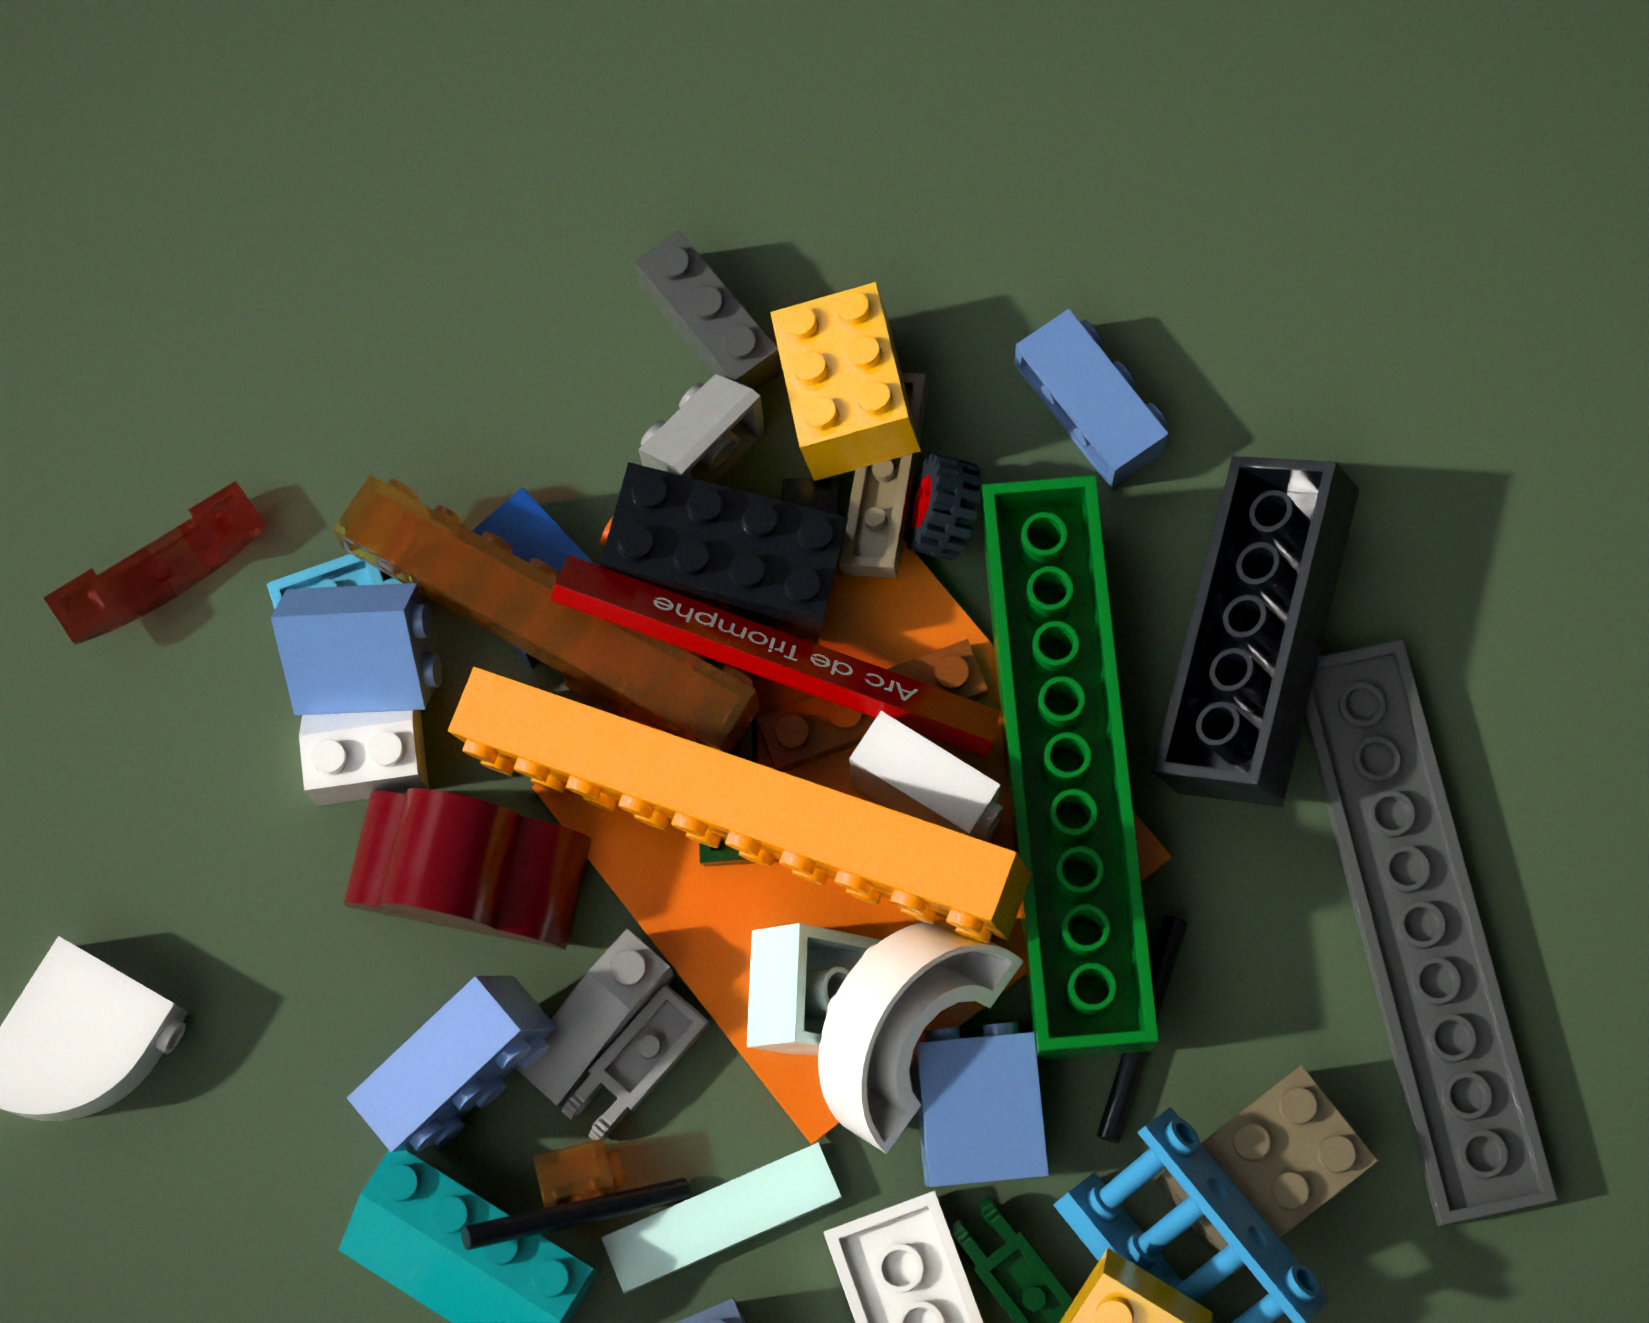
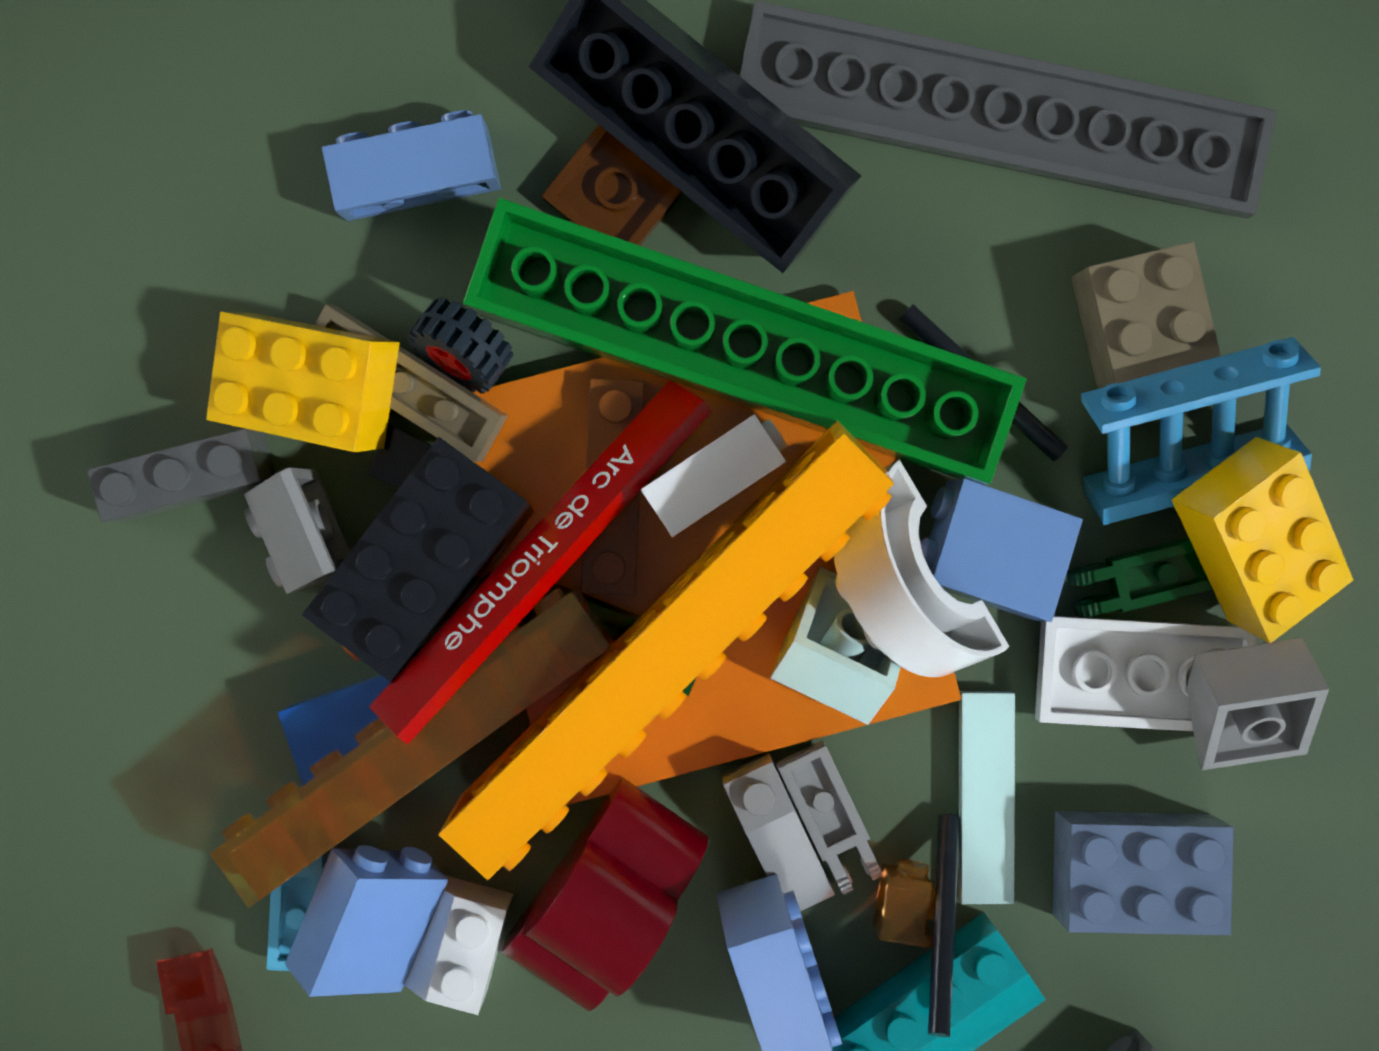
camera: 70 degrees left, 15 degrees up
(1154, 588) = (611, 190): none -> reddish brown tile

